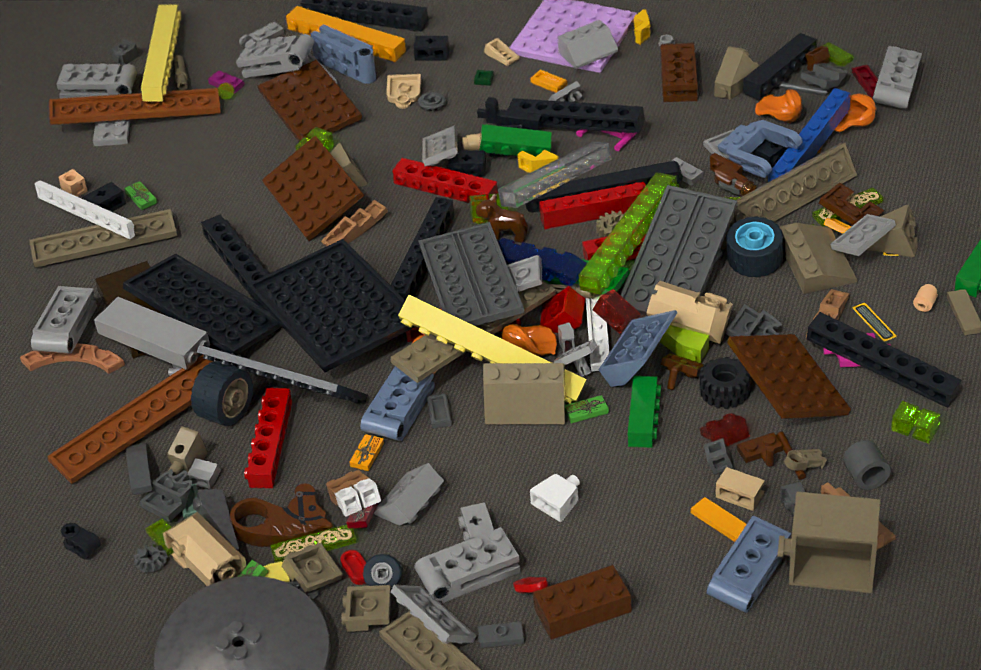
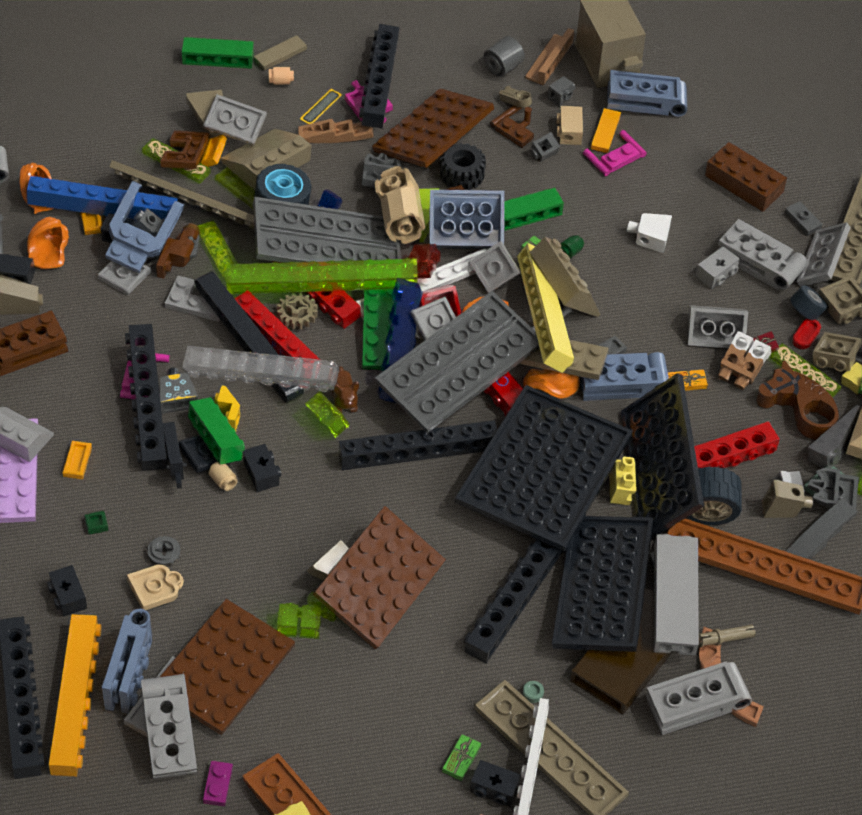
camera: 125 degrees left, 10 degrees up
(103, 356) = (719, 636): none -> dark tan pin
(157, 248) = (533, 691): none -> sand green tile
(225, 91) = (240, 767): clear neon green plate -> none
(269, 32) = (108, 792): light grey hinge -> none
(290, 356) = (622, 481): none -> light yellow hips
(356, 225) = (427, 529): medium nougat slope -> none
(439, 146) = (257, 490): light grey plate -> none
(441, 181) = (301, 475): red brick -> none
(495, 47) = (38, 534): tan slope -> none
(530, 584) = (753, 209): red tile -> none
(566, 337) = (473, 287): light grey piece -> none
(567, 92) = (104, 430): light grey plate -> none
(573, 137) = (176, 391): none -> dark grey torso
(574, 425) = (572, 245): none -> dark green brick
(676, 516) = (619, 157): none -> dark pink plate
(730, 428) = (511, 155): clear red bracket -> none
(732, 282) = (330, 200): none -> clear blue tile
(764, 150) = (148, 222): none -> dark grey brick
(909, 416) = (433, 46): clear neon green piece -> none

